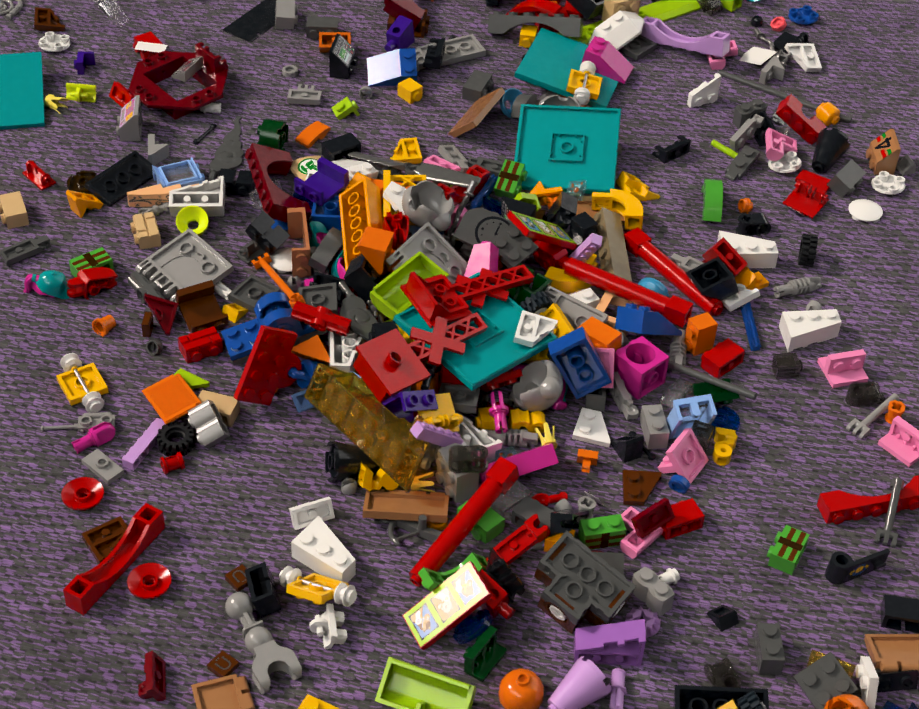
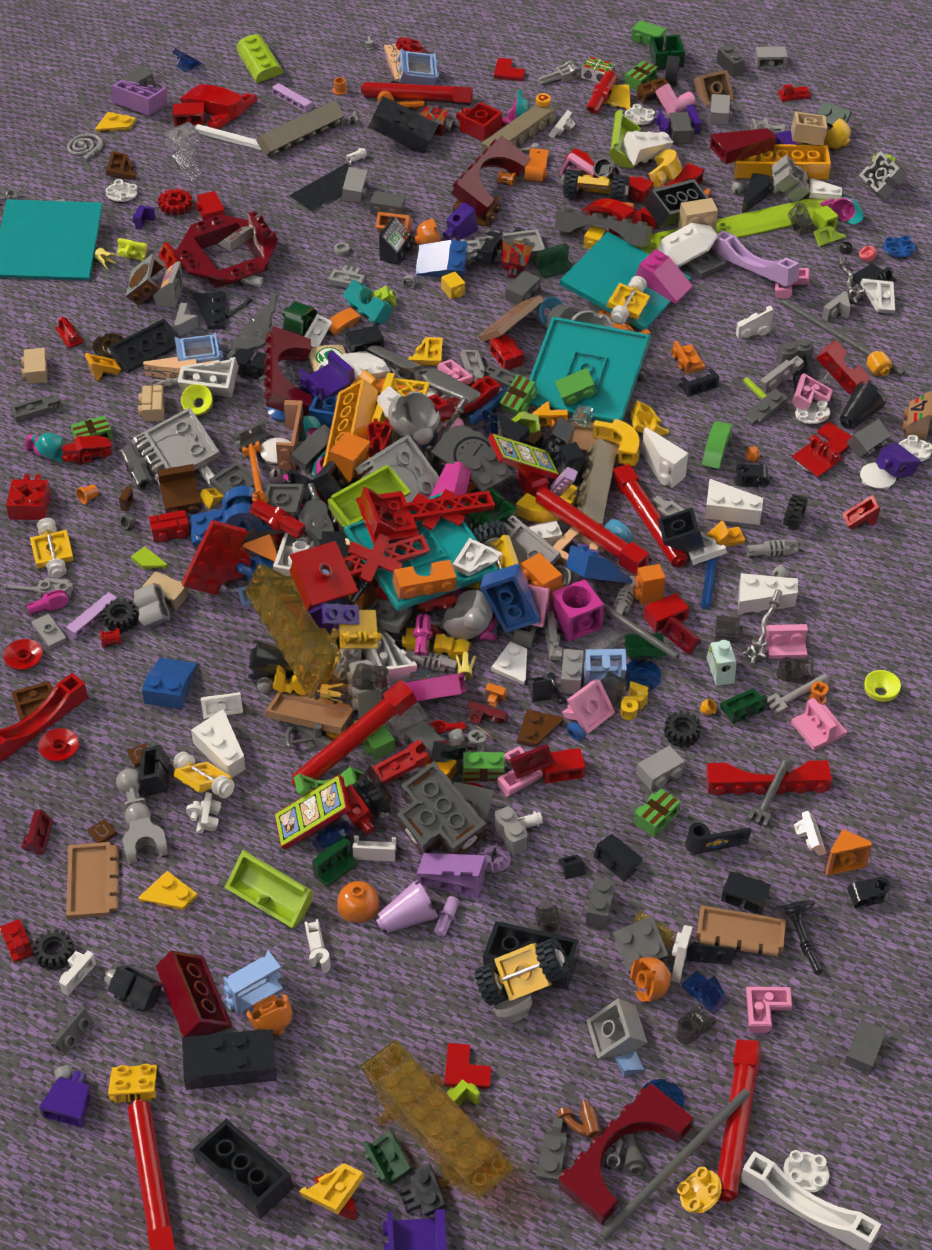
camera: 15 degrees right, 5 degrees up
(43, 337) = (28, 498): none -> red hinge
(101, 117) = (140, 285): none -> reddish brown panel
(111, 45) = (174, 201): none -> red gear
(152, 47) = (209, 208): white sticker -> none
(163, 310) = (143, 487): dark red tile -> none
(171, 398) = (126, 574): orange window -> none
(179, 137) = (212, 308): none -> black wing
(248, 499) = (168, 683): none -> blue slope
(264, 235) = (257, 421): black piece -> none
(293, 143) = (318, 330): none -> white hinge
(323, 109) = (376, 309): none -> teal arch
(371, 46) = (427, 233): none -> orange cylinder
(435, 434) = (348, 649): lavender piece -> none
(460, 57) = (515, 255): none -> torso
(479, 361) = (410, 584): none -> orange arch
(482, 143) = (506, 352): none -> red brick
(496, 59) = (552, 260): none -> clear green bracket
(521, 634) = (374, 850): none -> white hinge
(564, 164) = (576, 387): none -> bright green brick
(576, 478) = (478, 711): none -> dark red hinge
(651, 129) = (687, 358): none -> orange bracket
(668, 217) = (664, 458): none -> white slope
(727, 254) = (704, 510): red hinge -> none
(737, 12) = (827, 235): none -> lime tile
(744, 377) = (681, 635): none -> dark red hinge
(757, 55) = (831, 287): white sticker -> none
(766, 600) = (617, 857): none -> black hinge
(775, 506) = (660, 768): none -> light grey brick
(780, 474) = (682, 720): none -> black tyre
(795, 396) = (719, 656): none -> light aqua torso
(795, 441) = (708, 707): none -> light orange hinge
(821, 381) = (757, 650): none -> flat silver piece
(830, 434) = (744, 705): none -> dark green bracket
(870, 241) = (864, 511): none -> red slope
(878, 194) = (897, 461): none -> dark purple torso

